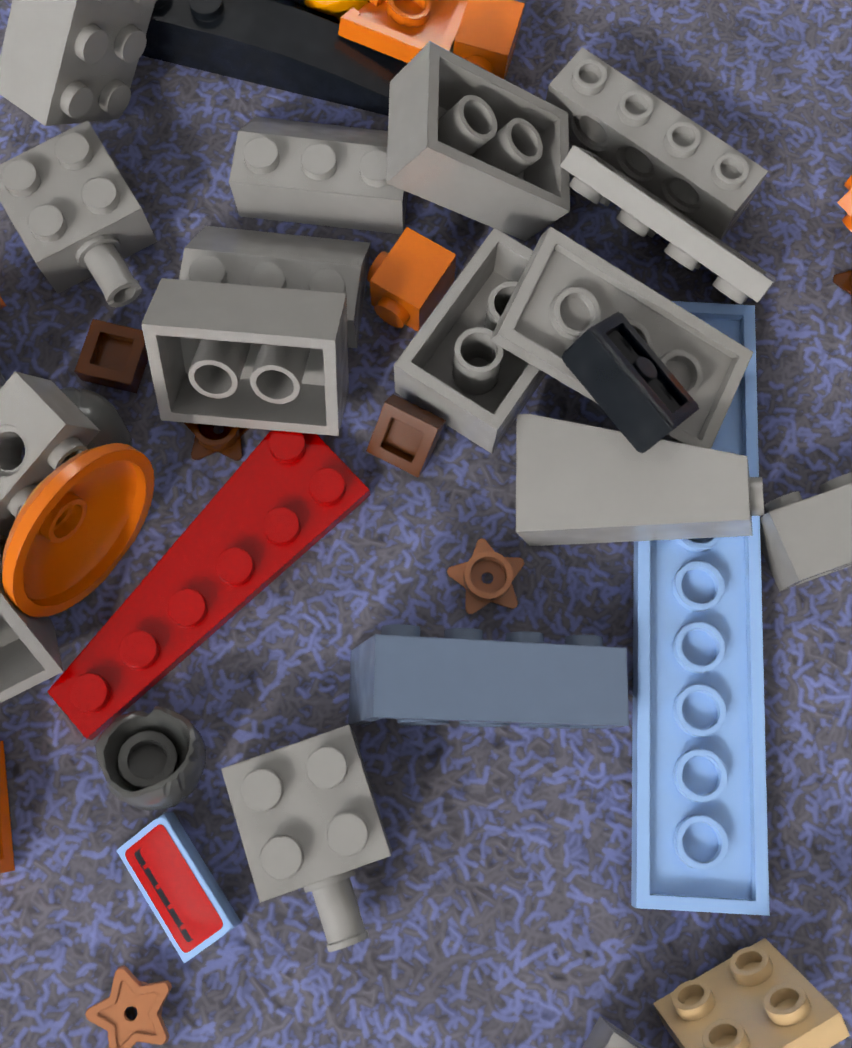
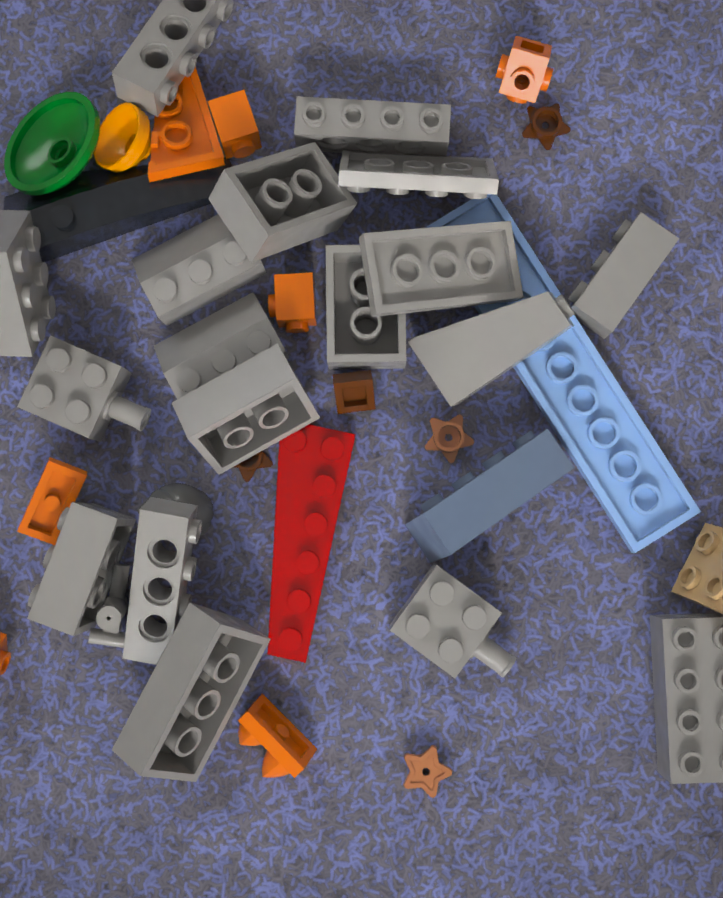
camera: 25 degrees left, 10 degrees up
(76, 528) = (225, 564): orange dish -> none
(113, 356) = (163, 456): reddish brown plate -> none
(151, 758) = (346, 648): dark grey hair -> none
(178, 886) = (404, 699): slope -> none
(629, 381) = (461, 290): black slope -> none

